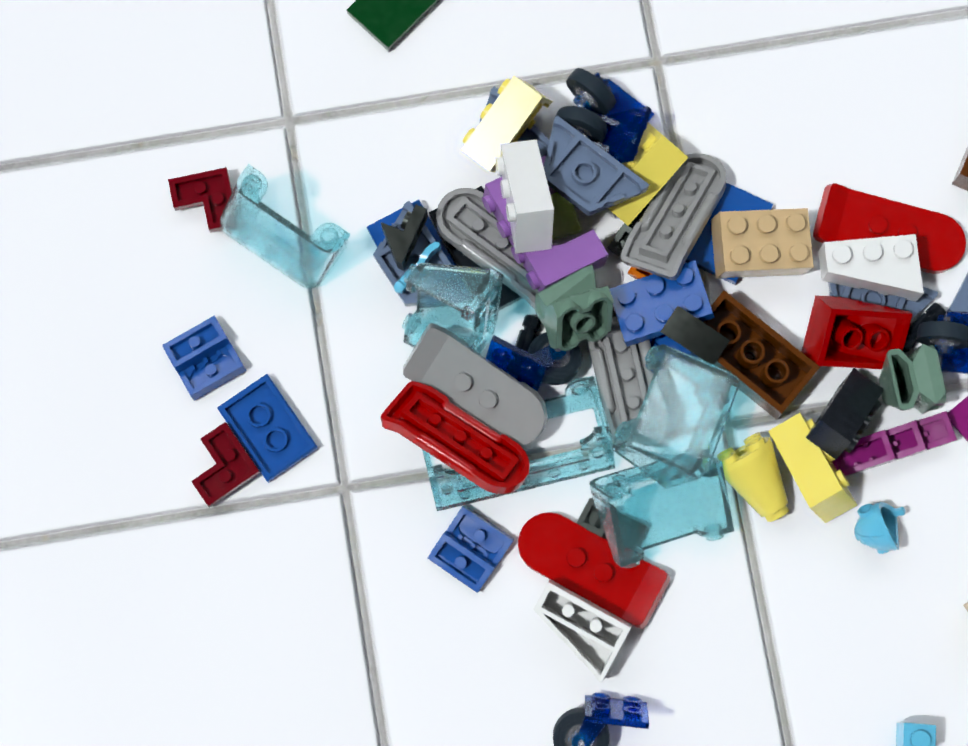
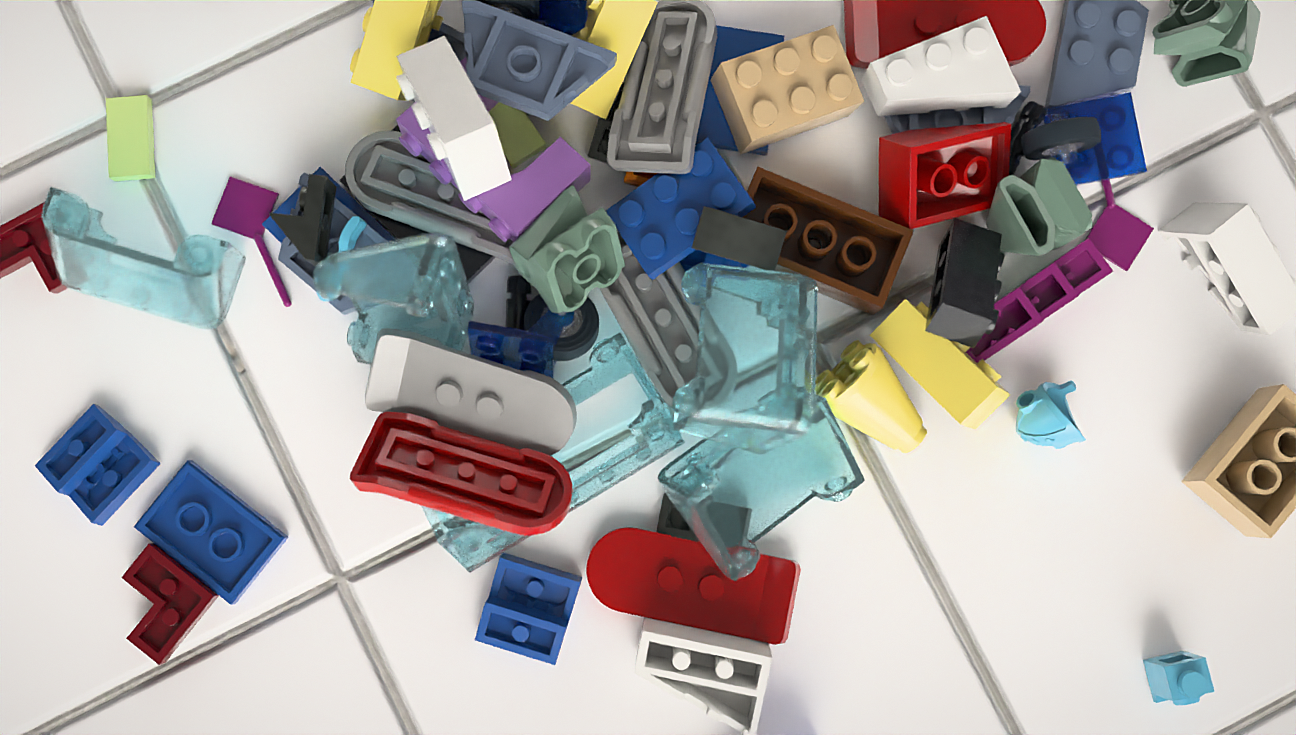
camera: 25 degrees left, 5 degrees up
(293, 140) = (130, 138): none -> yellowish green tile
(355, 215) = (243, 212): none -> magenta piece

